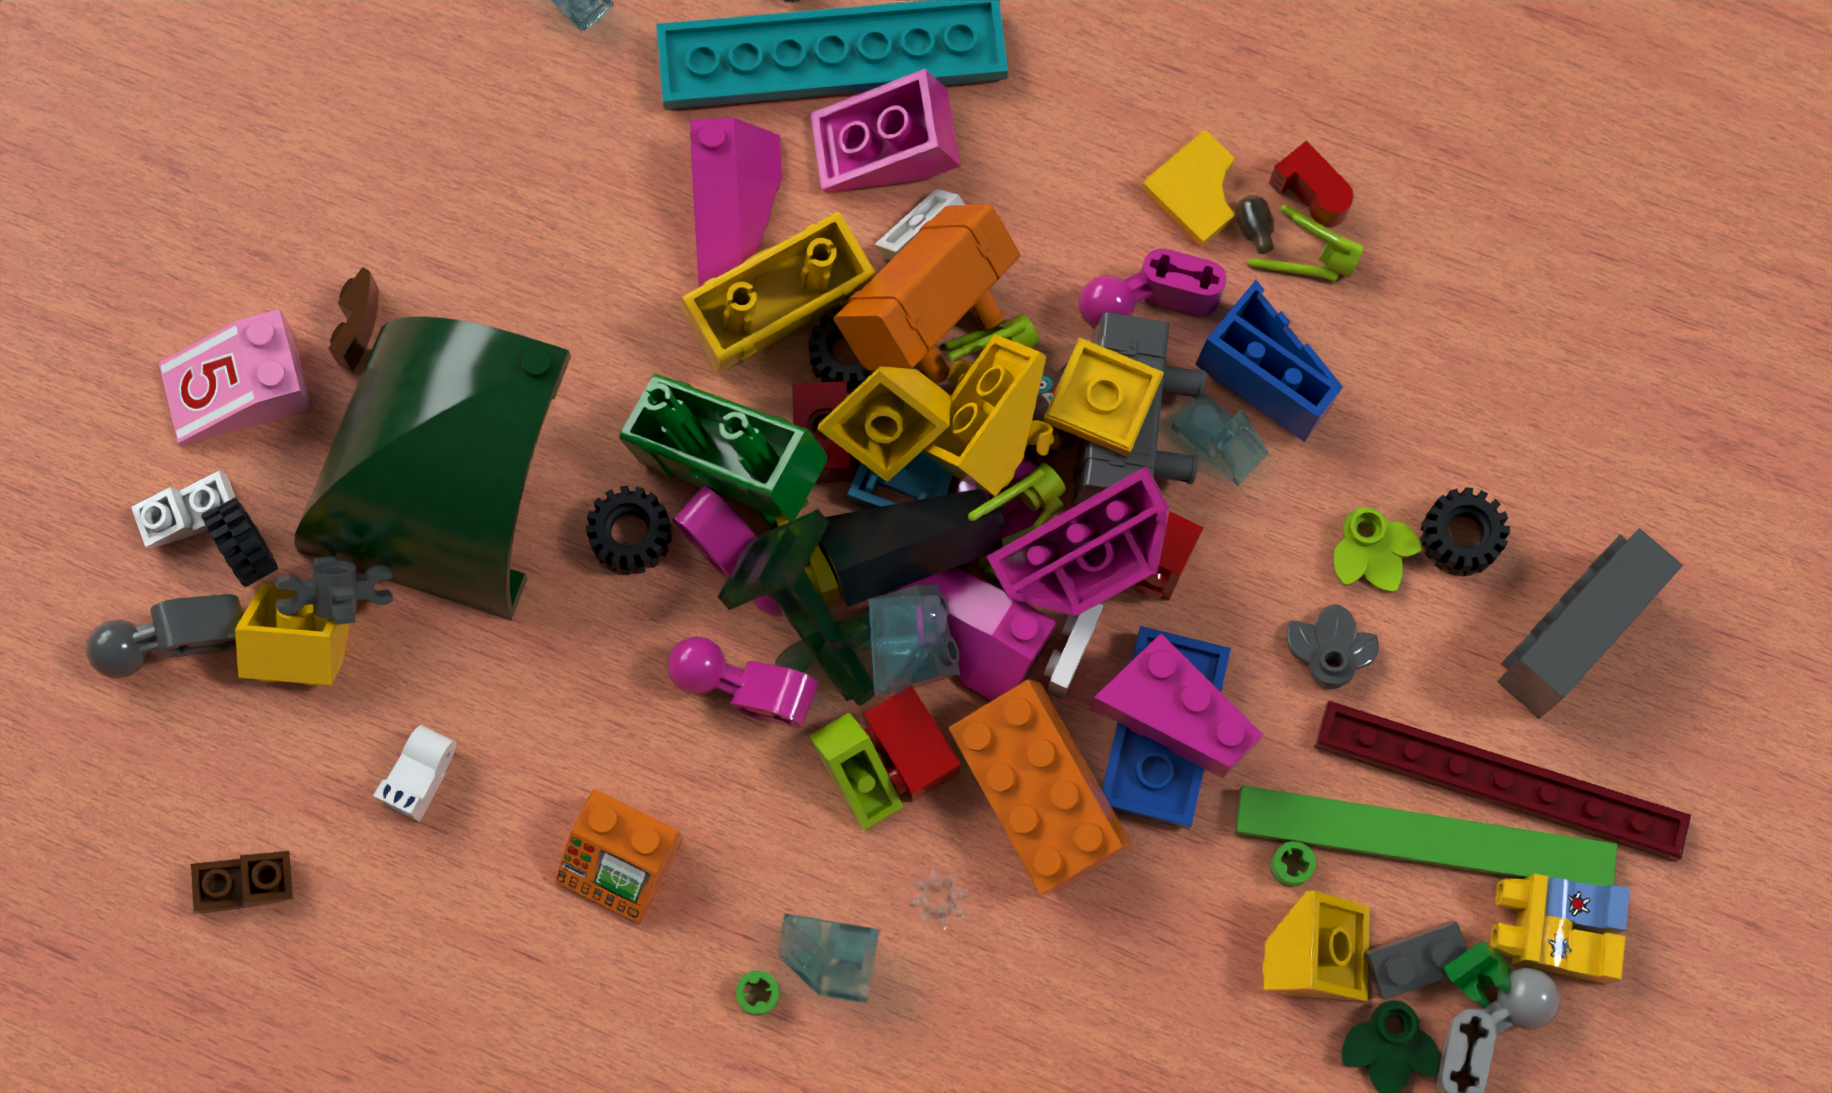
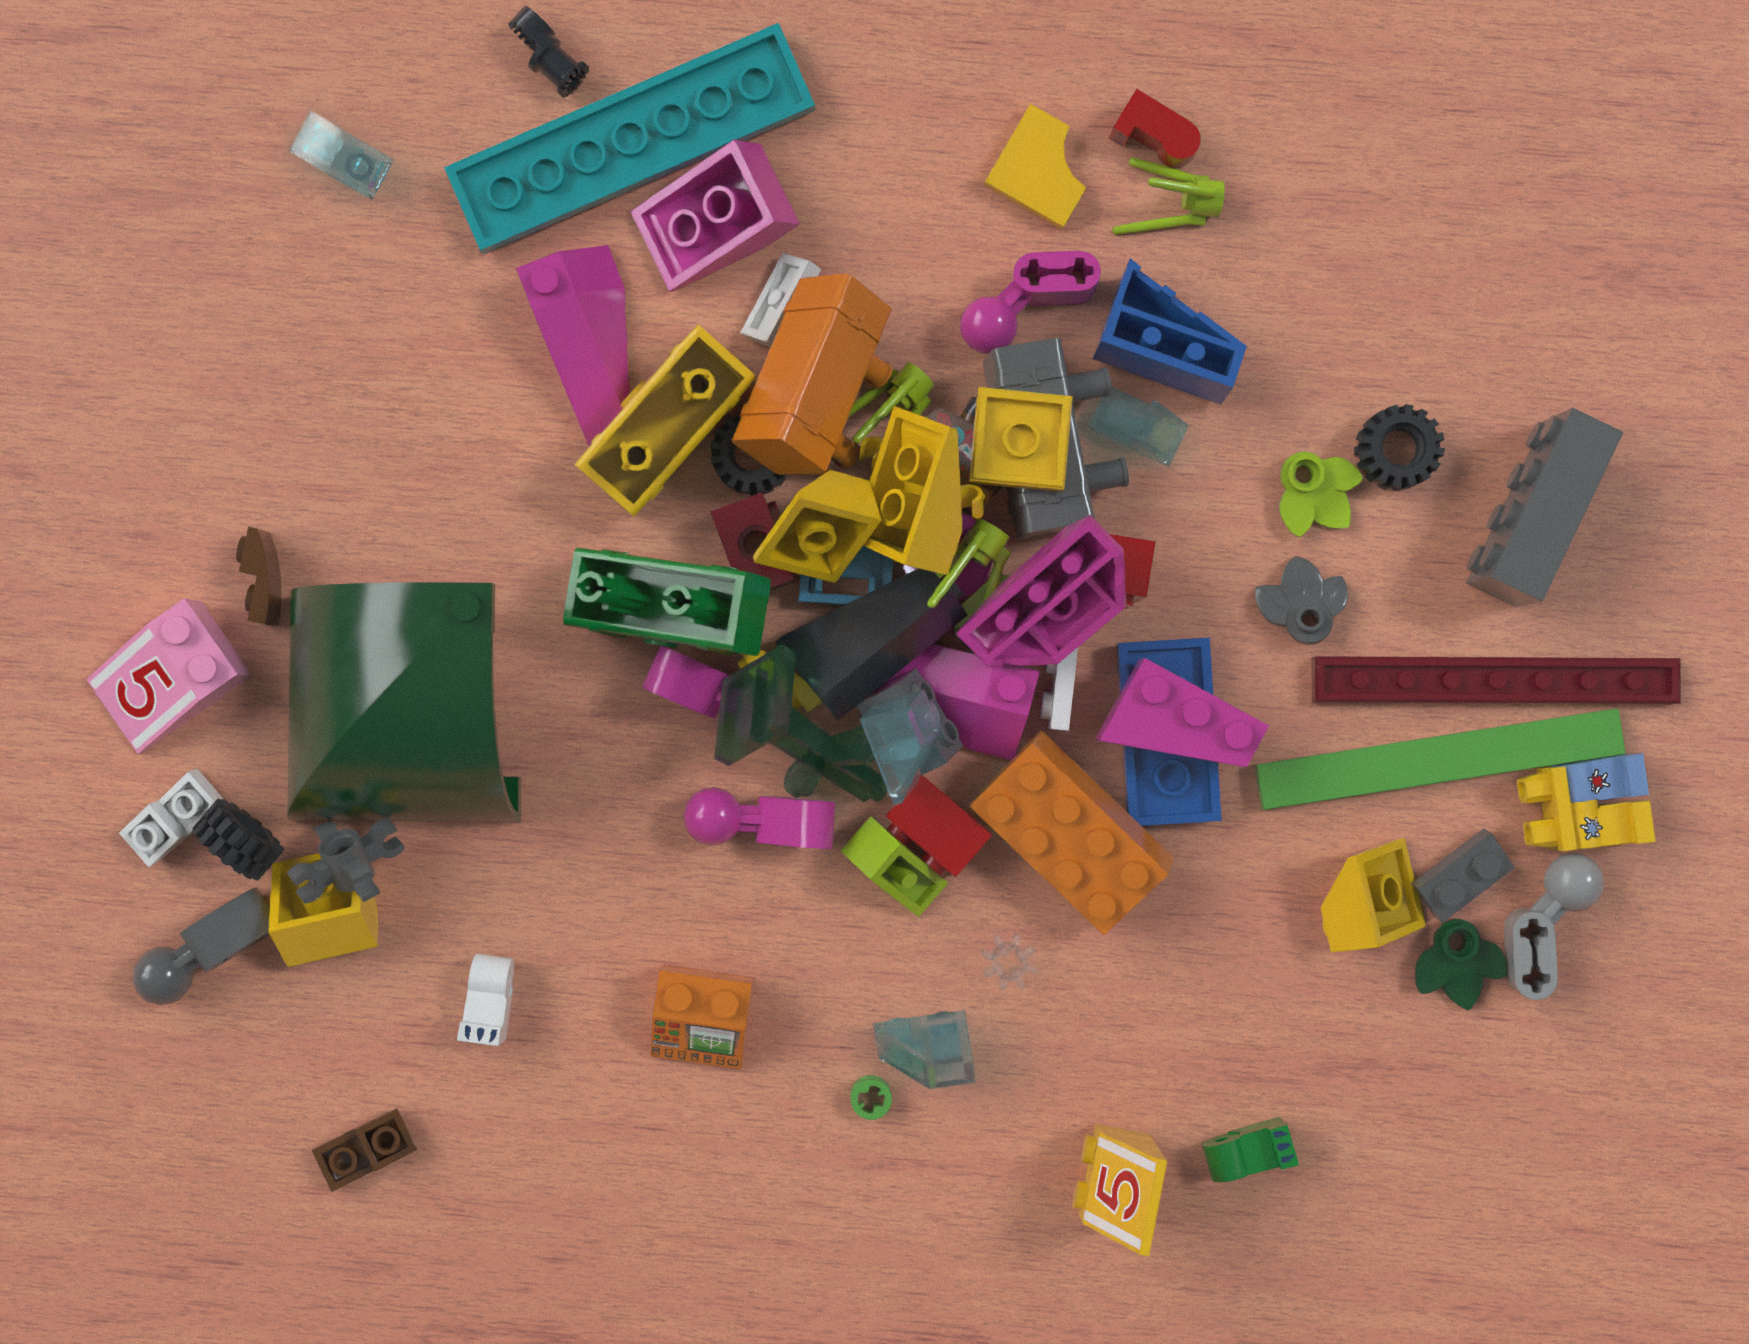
camera: 15 degrees left, 15 degrees up
(619, 505) = (574, 697): black tyre -> none
(1256, 222) = (1109, 187): clear smoke cylinder -> none
(1306, 859) = (1314, 832): bright green bush -> none
(1478, 970) = (1519, 873): green tile -> none

